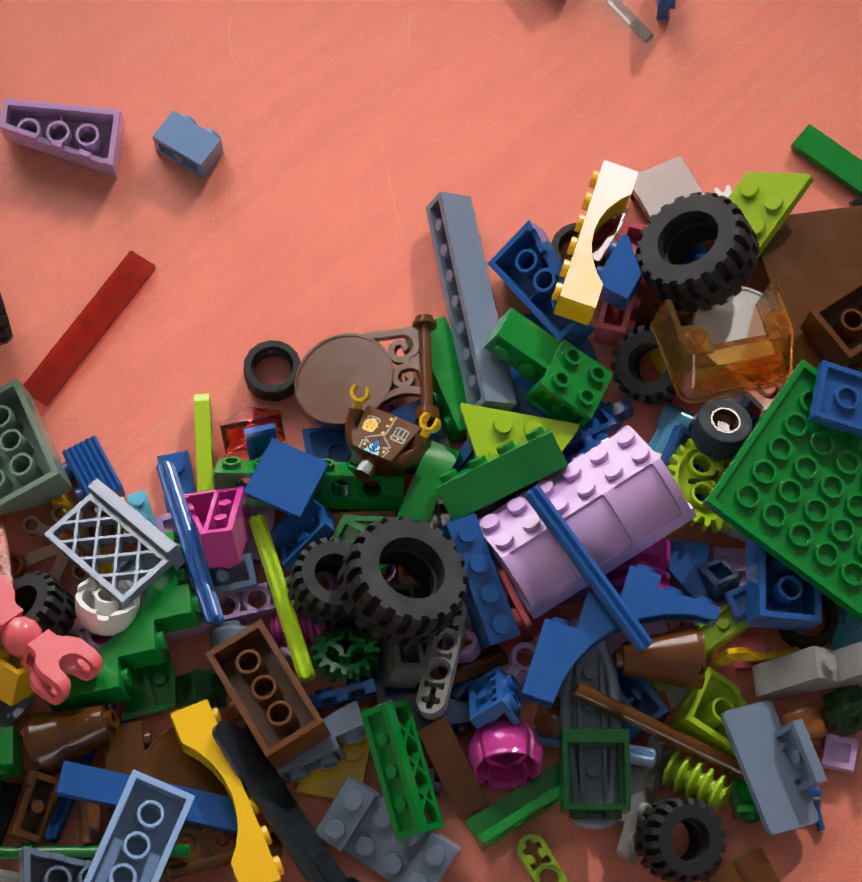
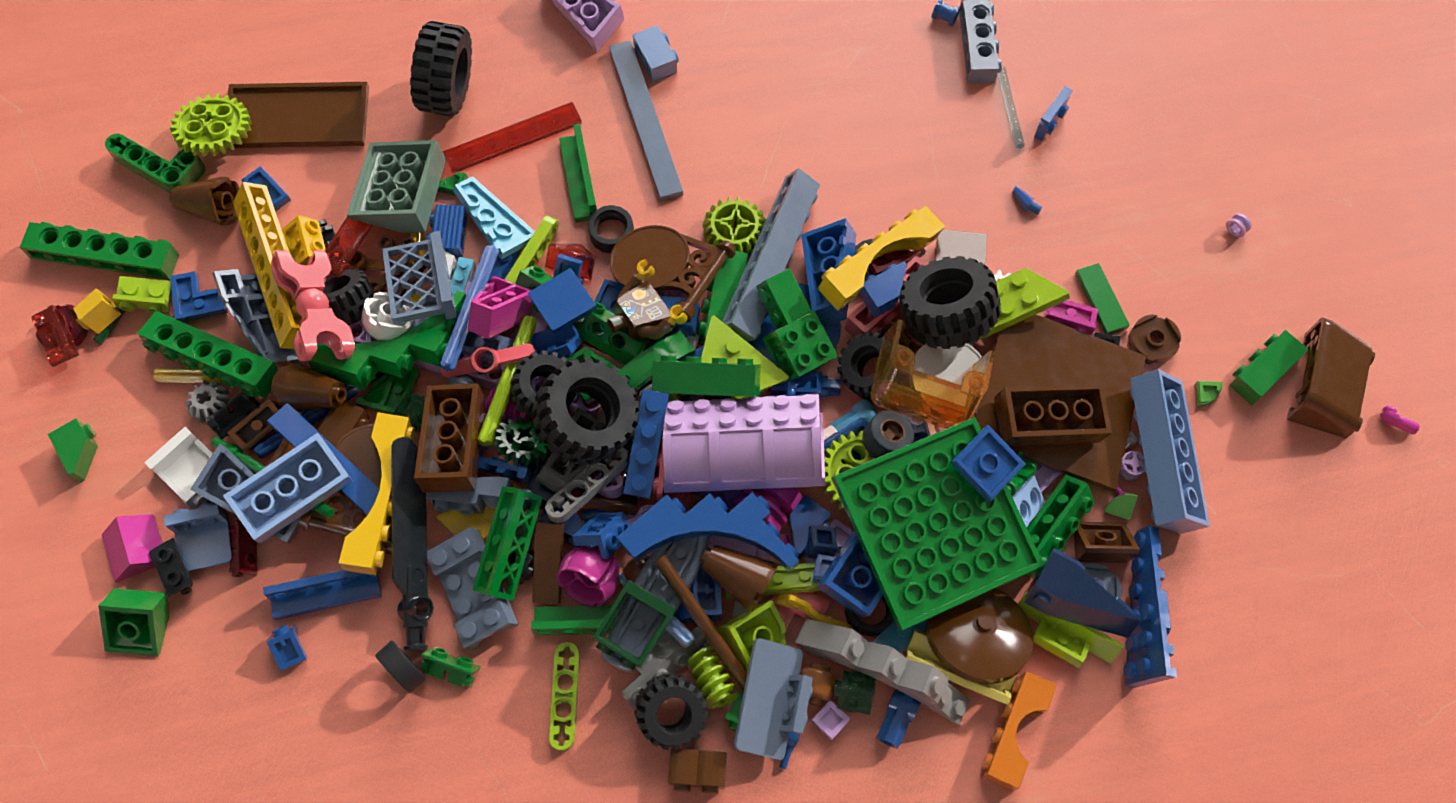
camera: 30 degrees right, 0 degrees up
(59, 417) = (447, 185): none -> green tile
(134, 430) = (493, 218): none -> medium azure wing
(196, 330) = (578, 175): none -> green fence
(226, 226) = (646, 121): none -> sand blue tile
(261, 576) = (501, 357): none -> coral piece
(425, 282) = (716, 223): none -> lime gear
(588, 569) = (717, 477): blue axle -> none
(693, 95) = (1026, 201): none -> blue bar
(824, 195) = (1074, 315): none -> dark pink bracket

